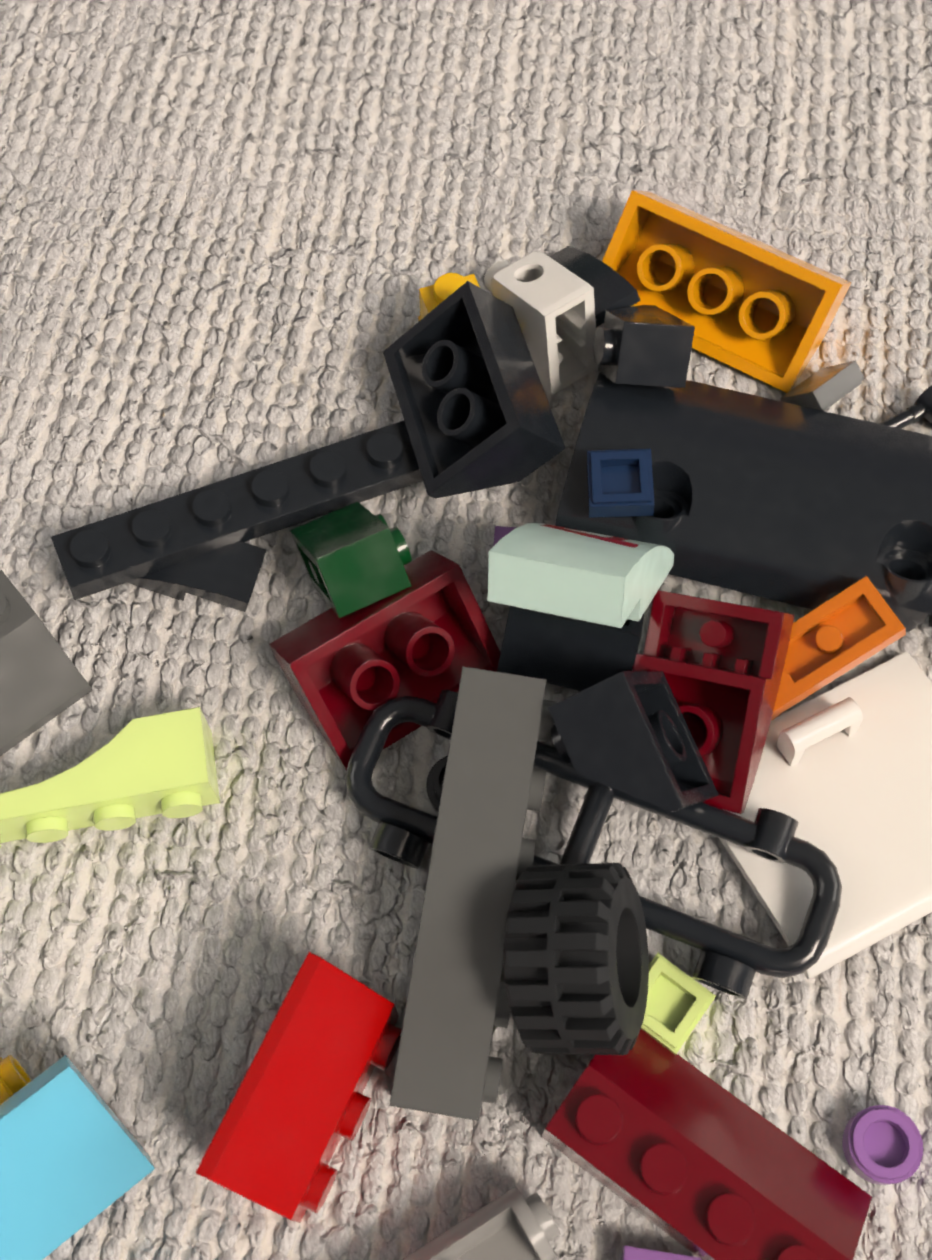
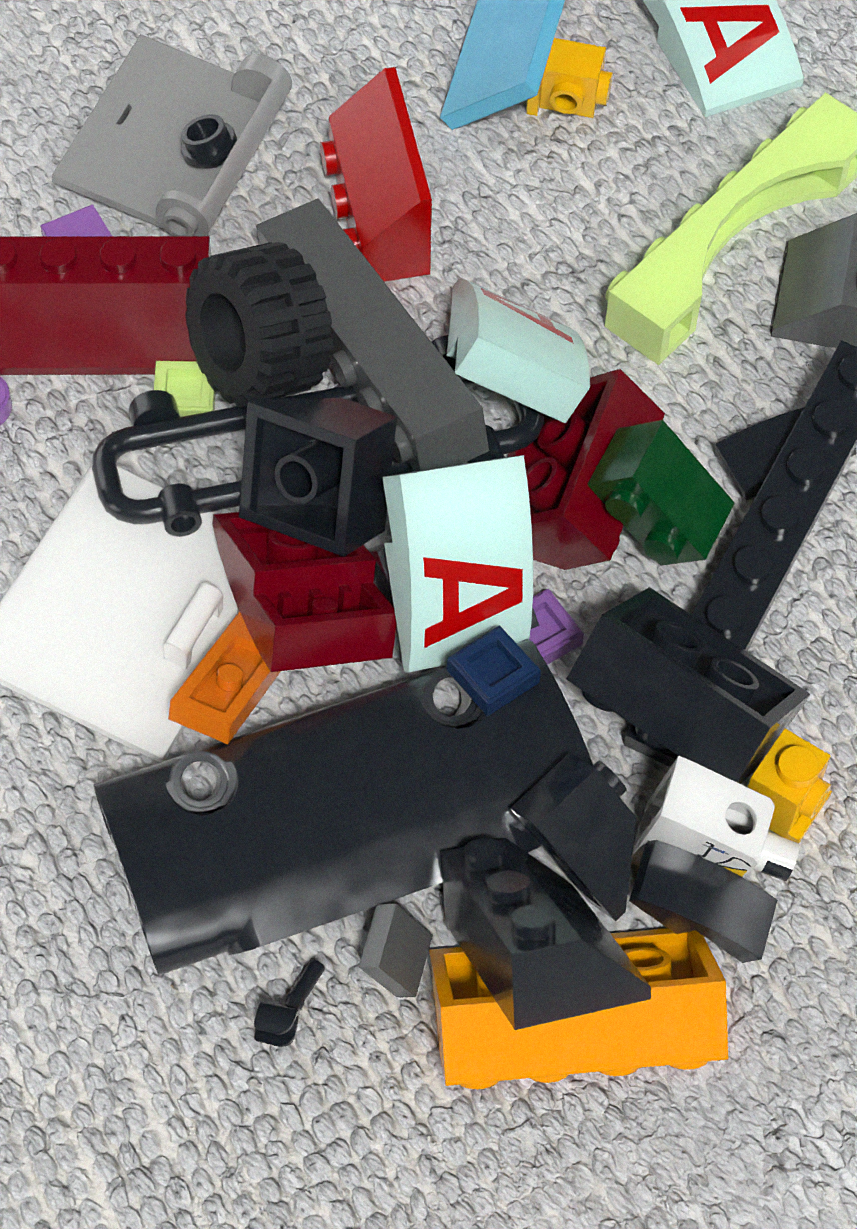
camera: 140 degrees right, 5 degrees down
(349, 768) = (517, 351): none -> light aqua slope
(738, 287) = (533, 936): none -> black slope

